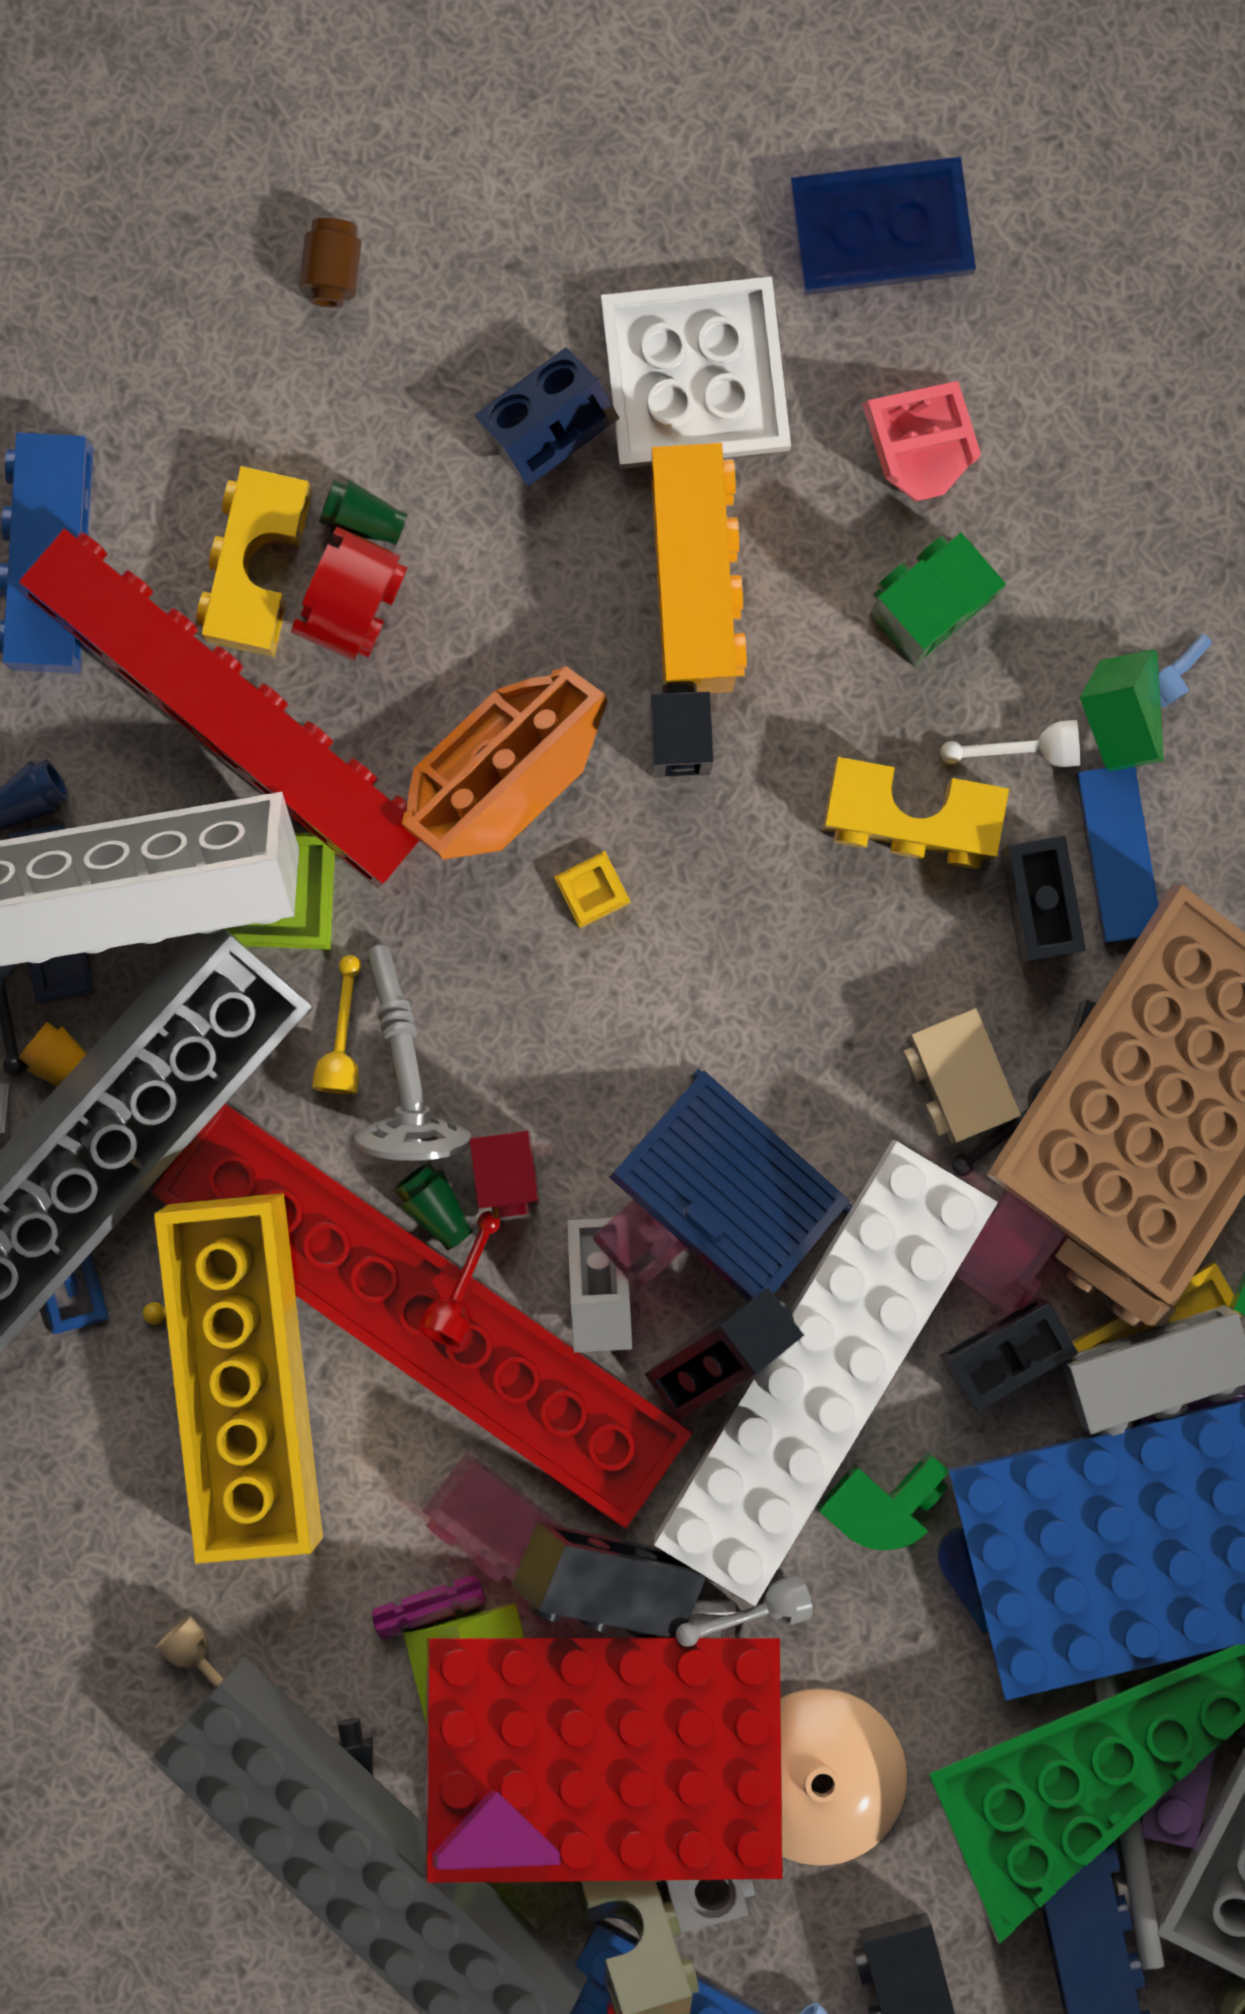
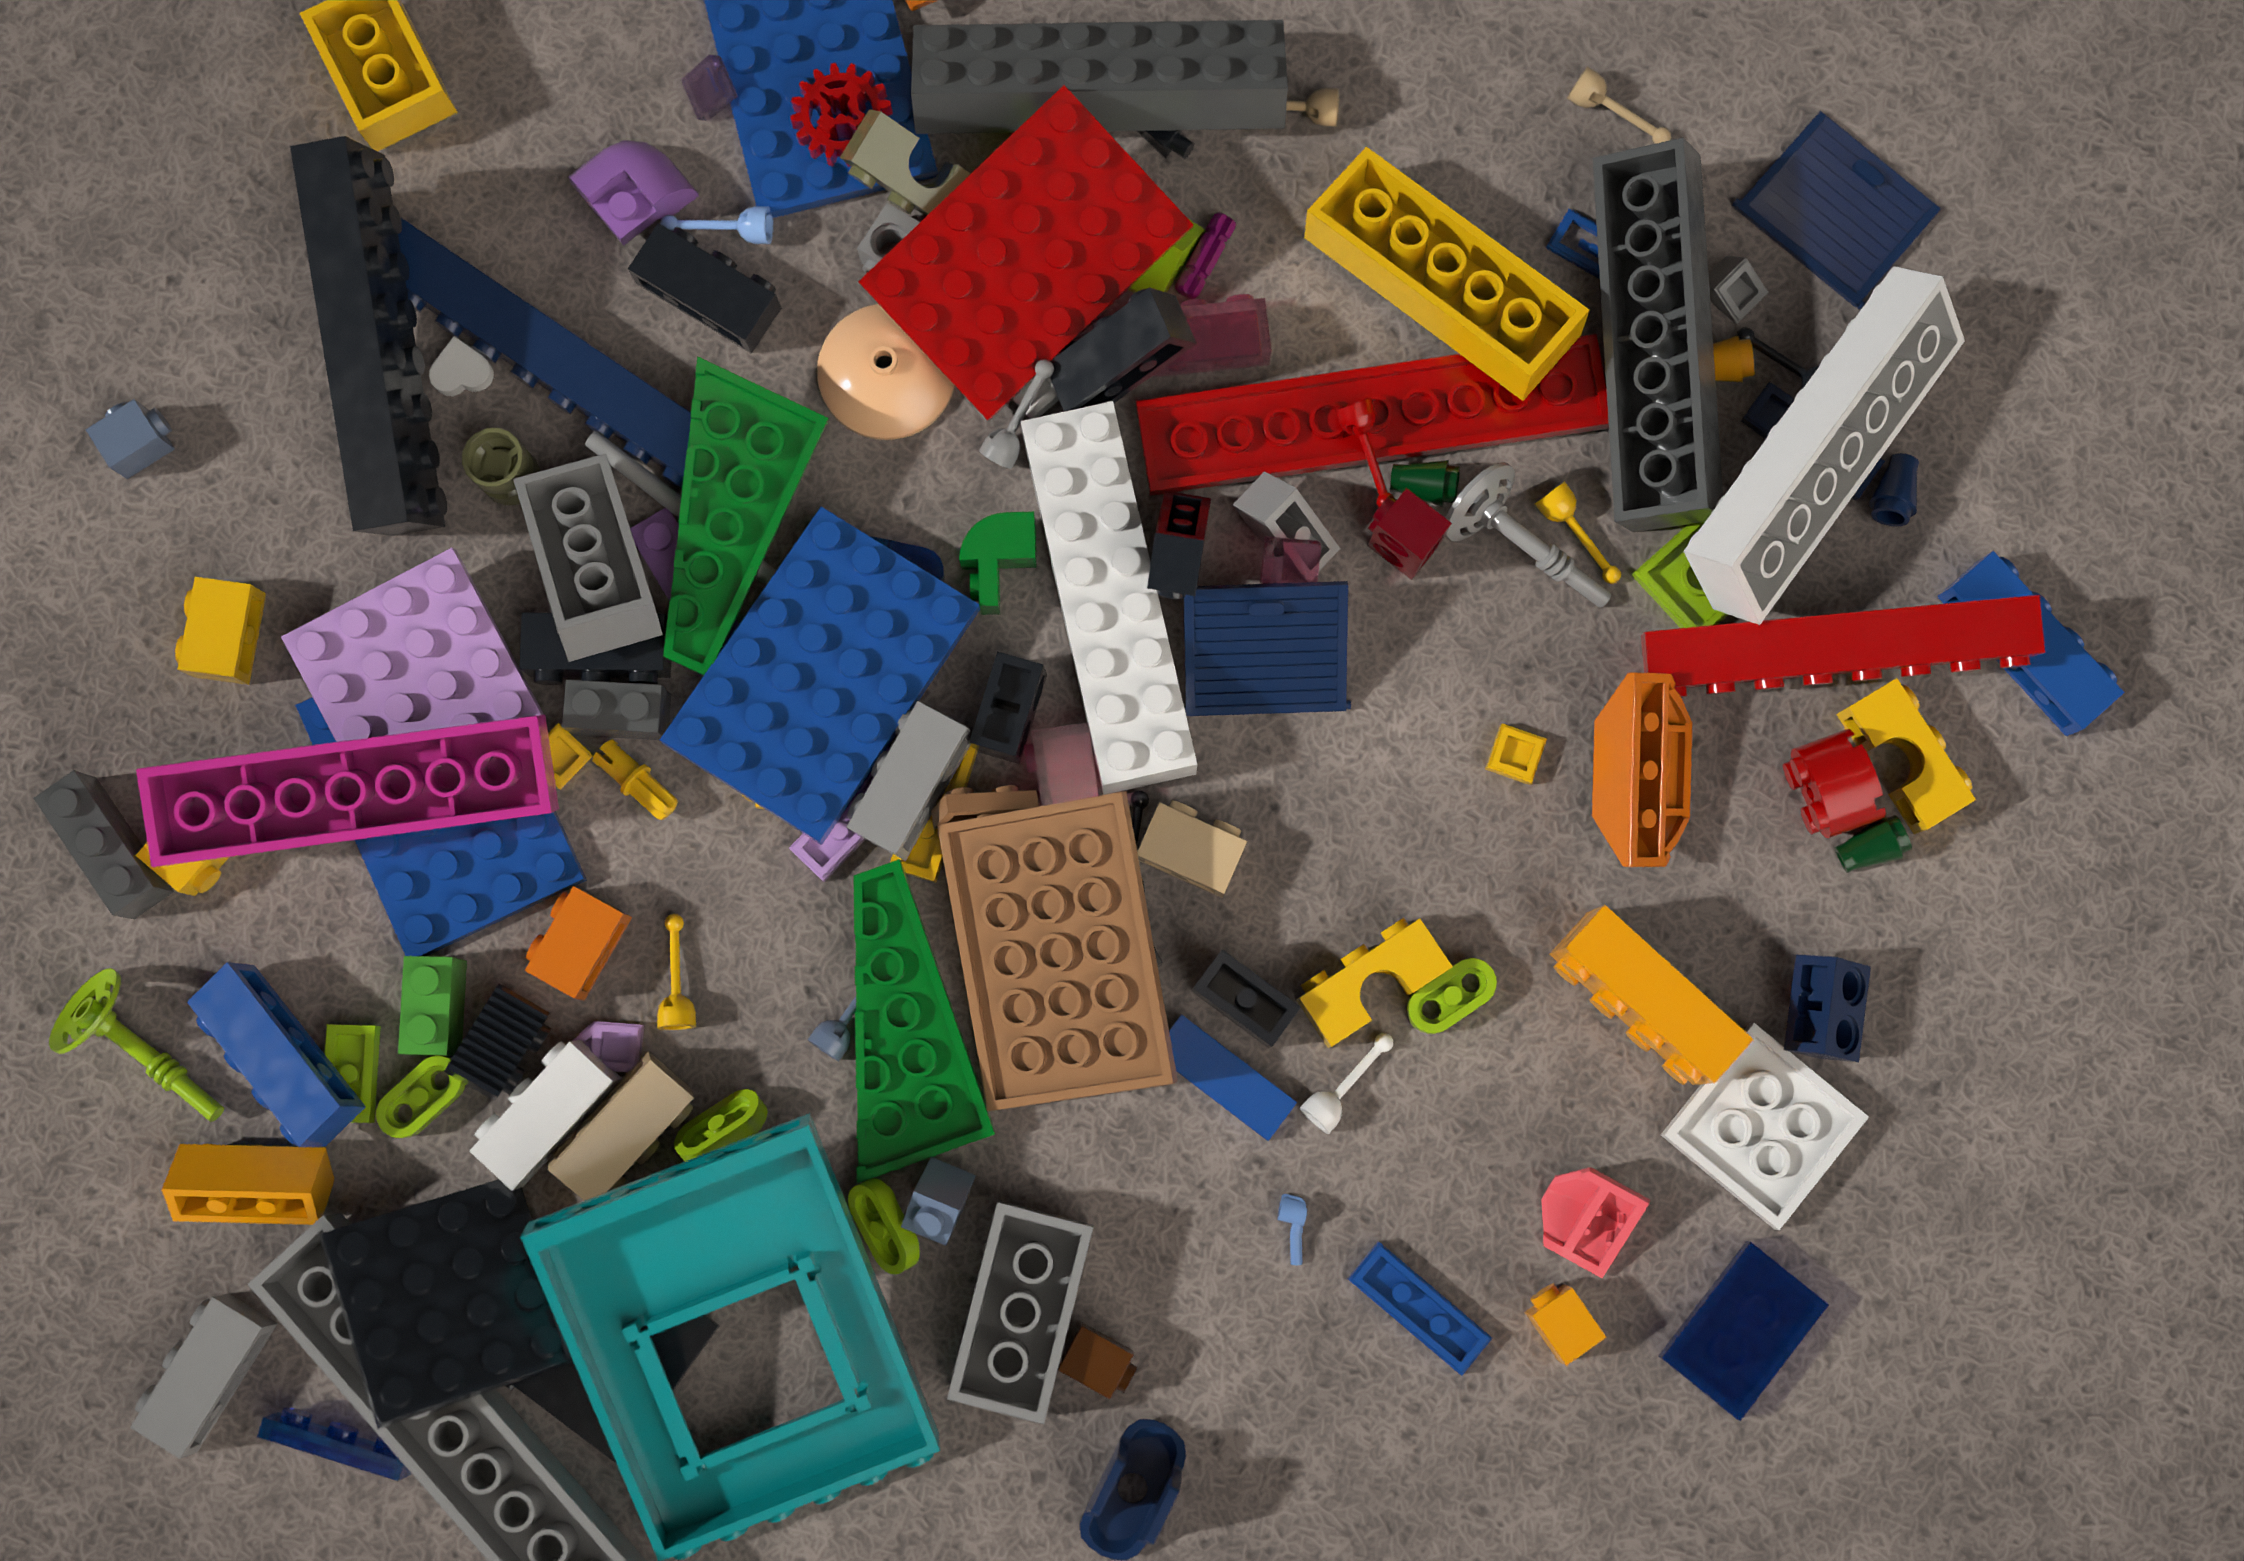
camera: 140 degrees right, 5 degrees down
(330, 262) = (2046, 979): reddish brown brick -> none
(494, 1838) = (1049, 139): magenta slope -> none
(681, 731) = (1561, 890): black brick -> none
(856, 734) = (1451, 997): none -> lime plate
(935, 596) = (1486, 1124): green brick -> none
(1029, 374) = (1564, 1322): none -> light orange brick
(1126, 710) = (1307, 1166): green slope -> none
(1137, 503) = (1420, 1308): none -> blue tile

